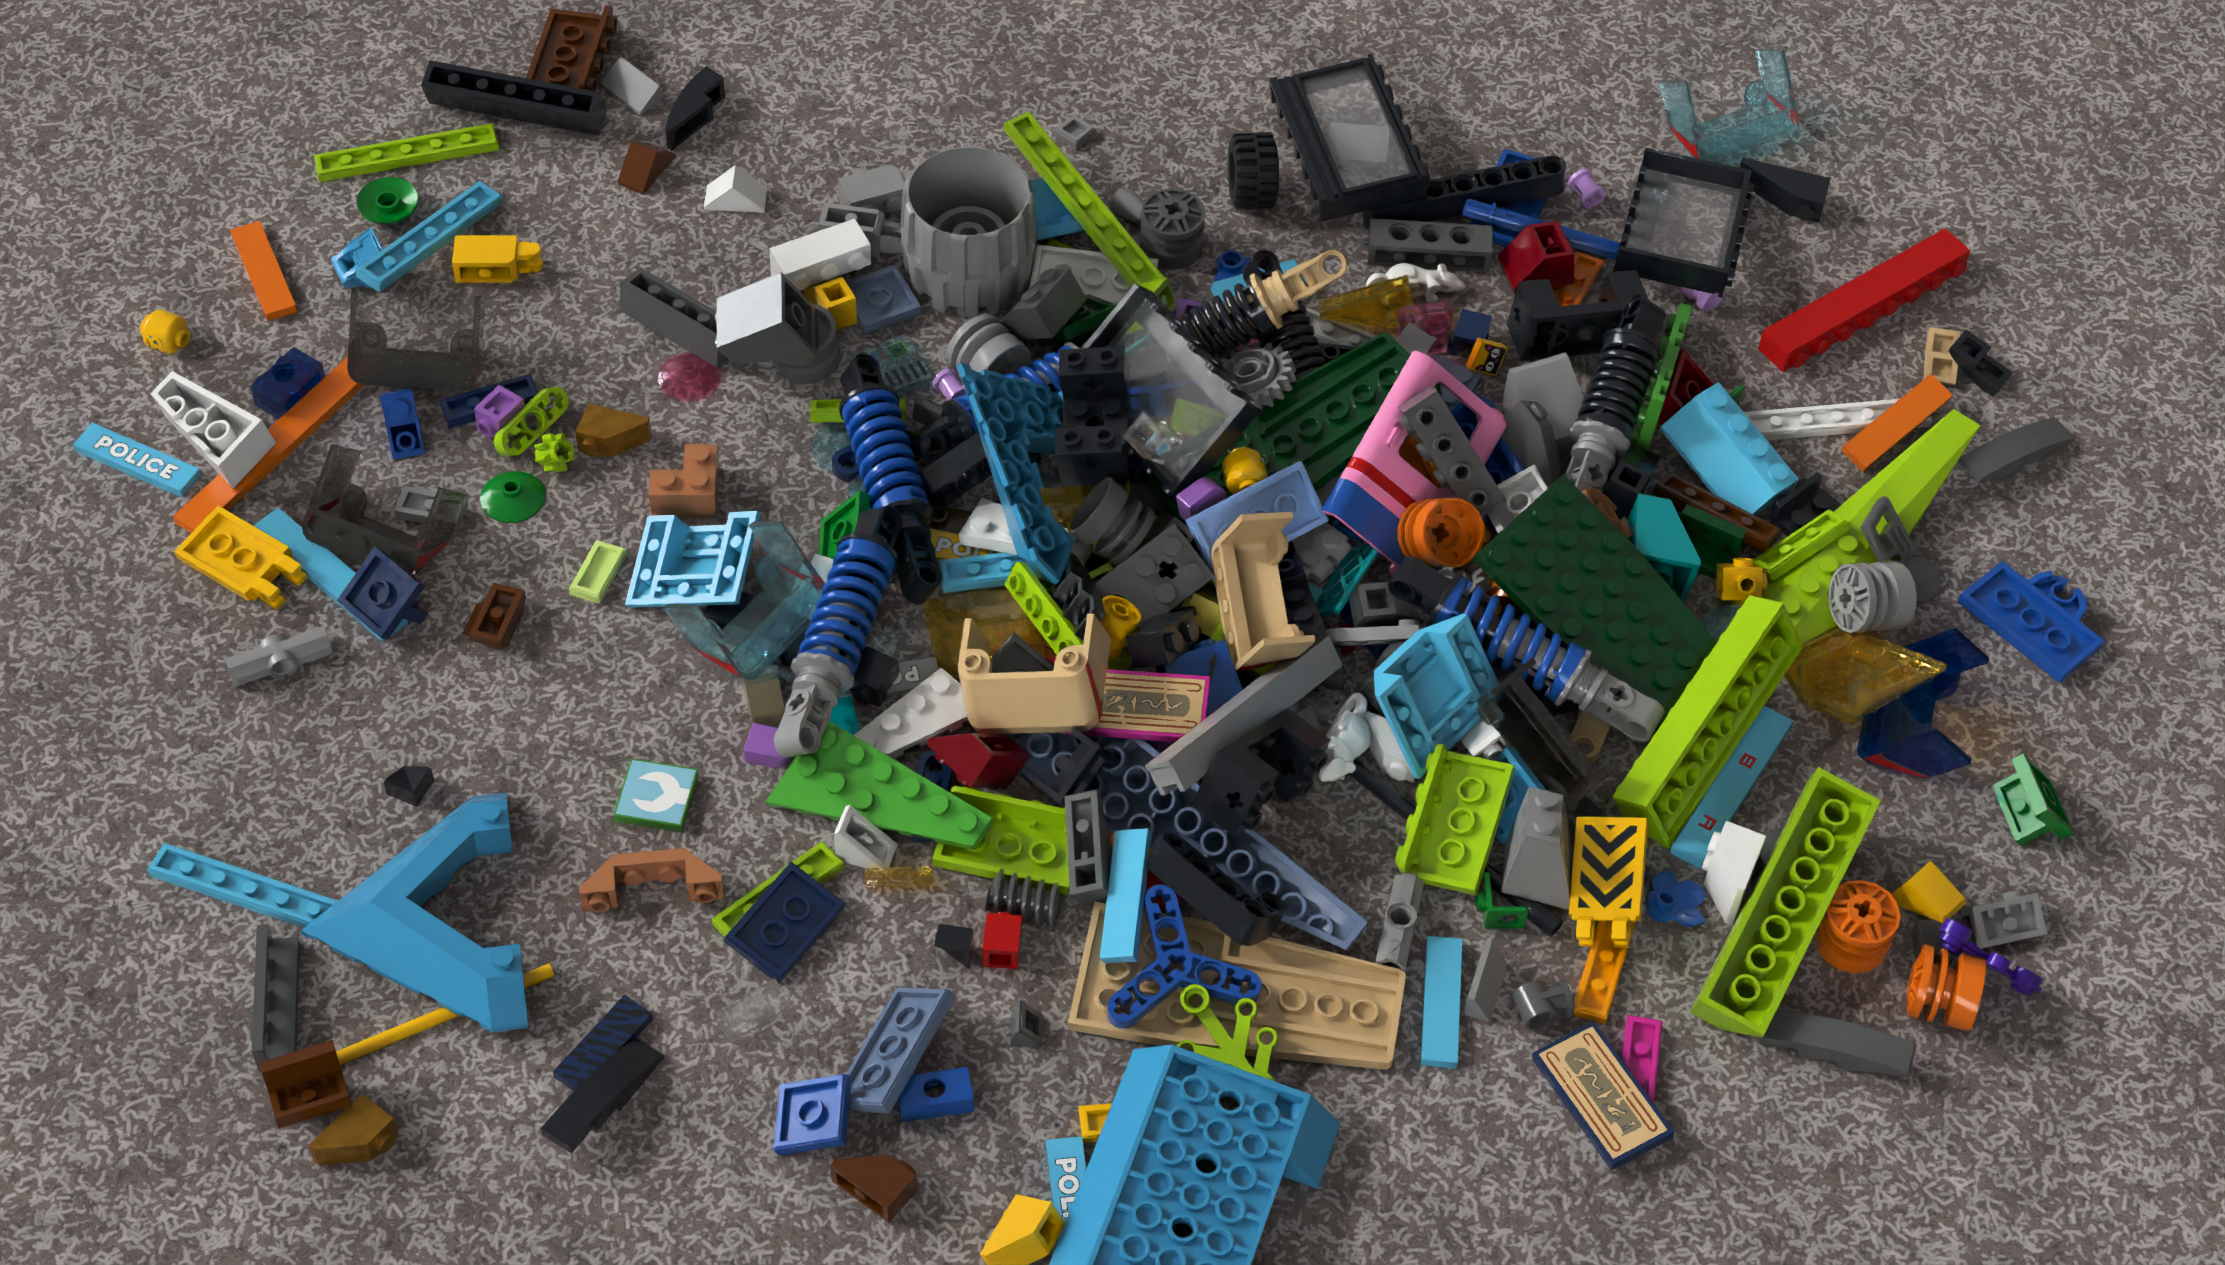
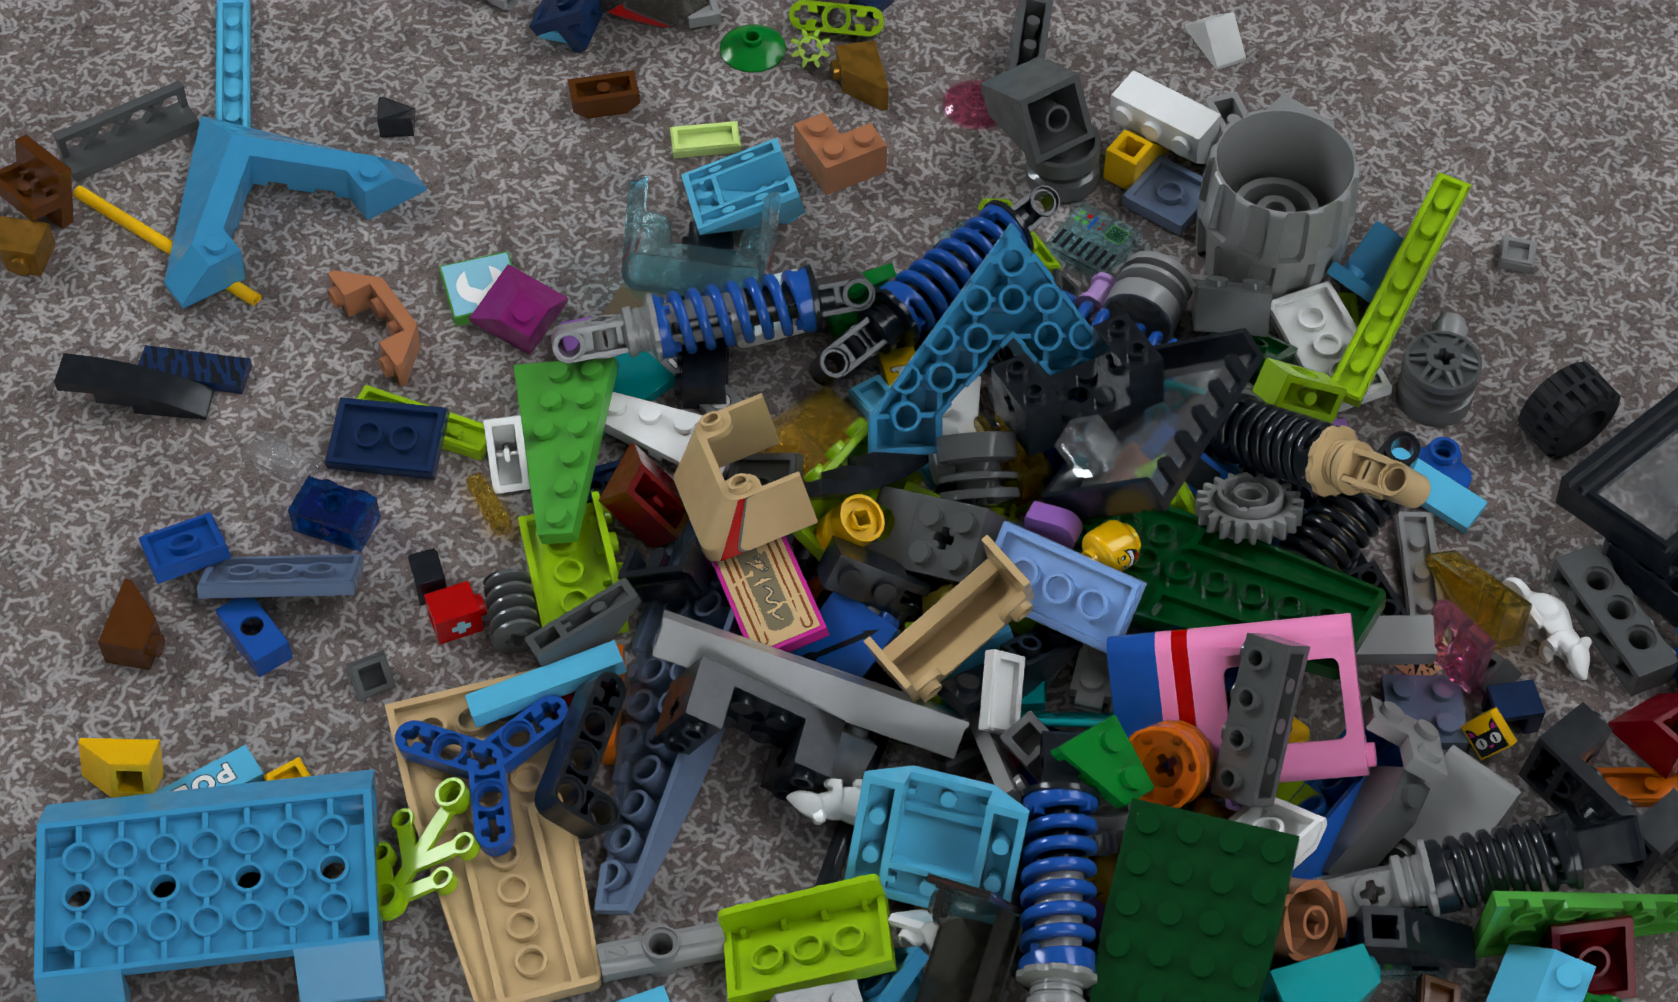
camera: 65 degrees right, 0 degrees up
(709, 773) = (518, 309): none -> magenta slope
(837, 1006) = (334, 513): none -> clear blue brick
(1321, 600) = (1001, 691): none -> white tile
(1438, 553) = (1107, 762): none -> green wing
(1493, 386) = (1417, 740): none -> light grey plate

